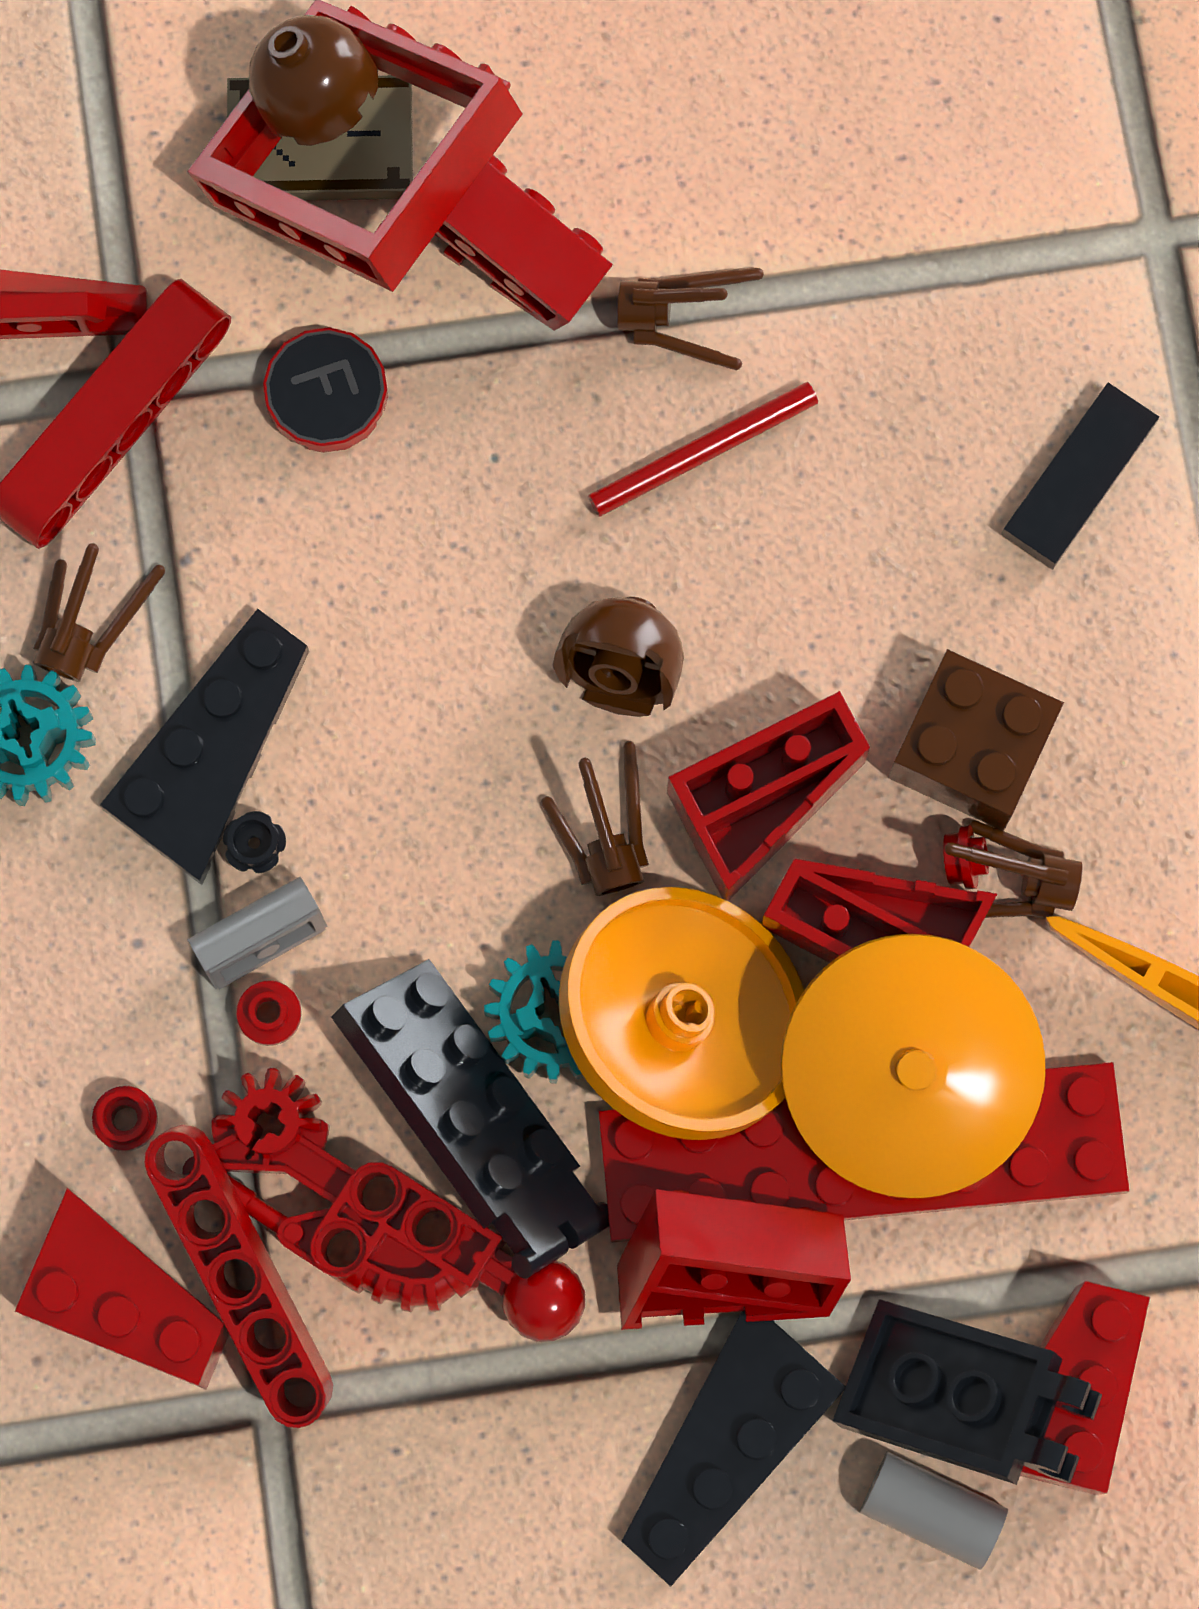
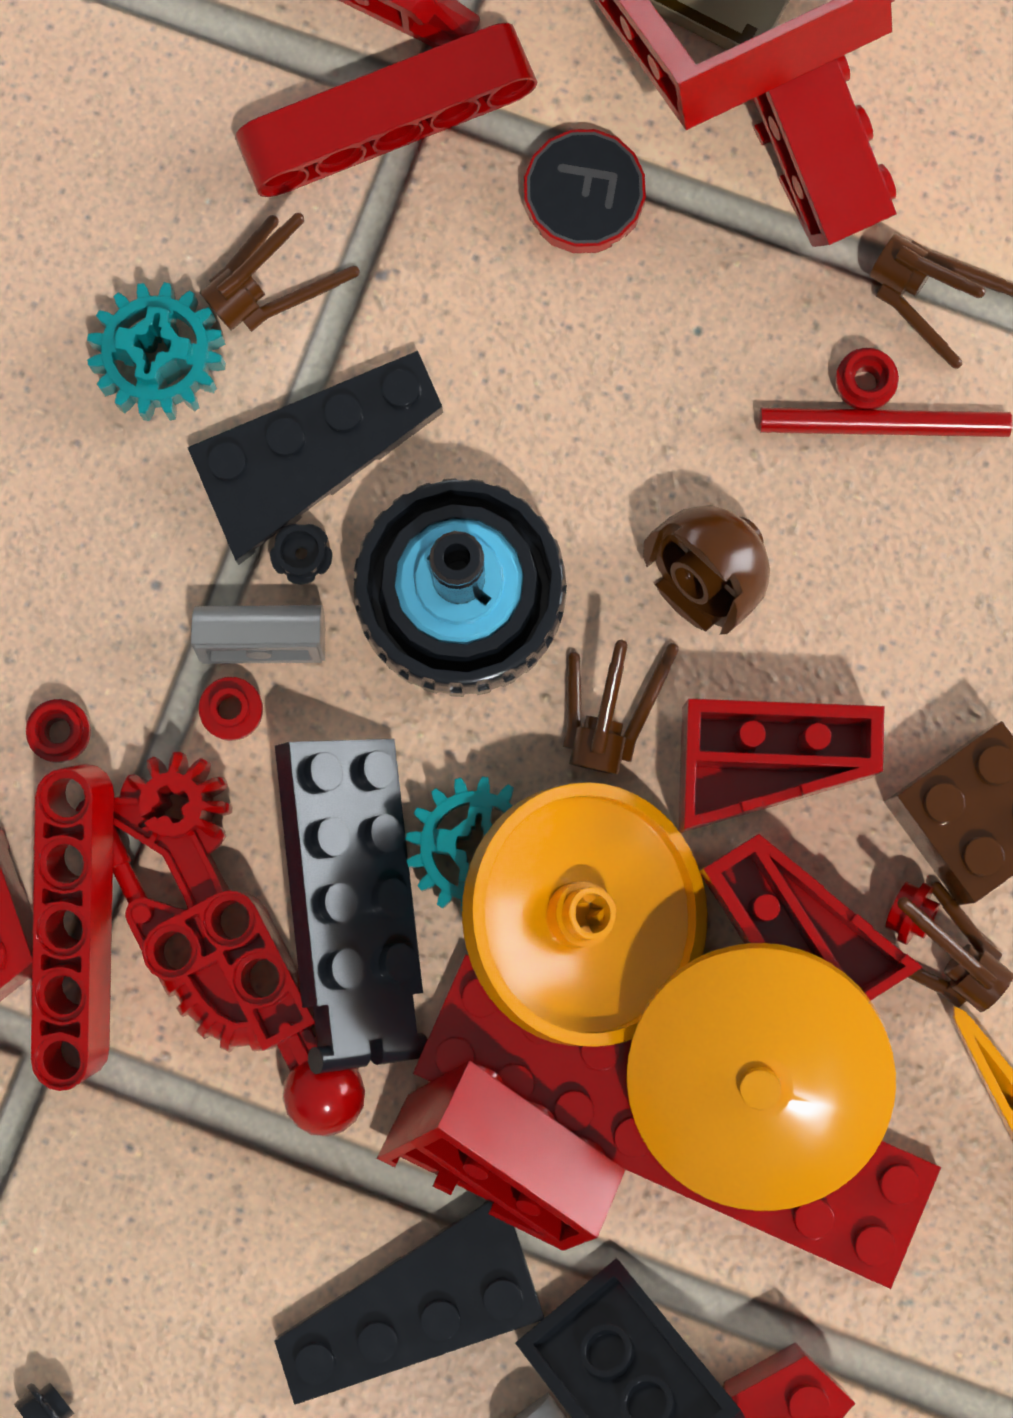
camera: 30 degrees right, 5 degrees up
(414, 793) = (459, 587): none -> black wheel
(666, 402) = (869, 361): none -> red plate

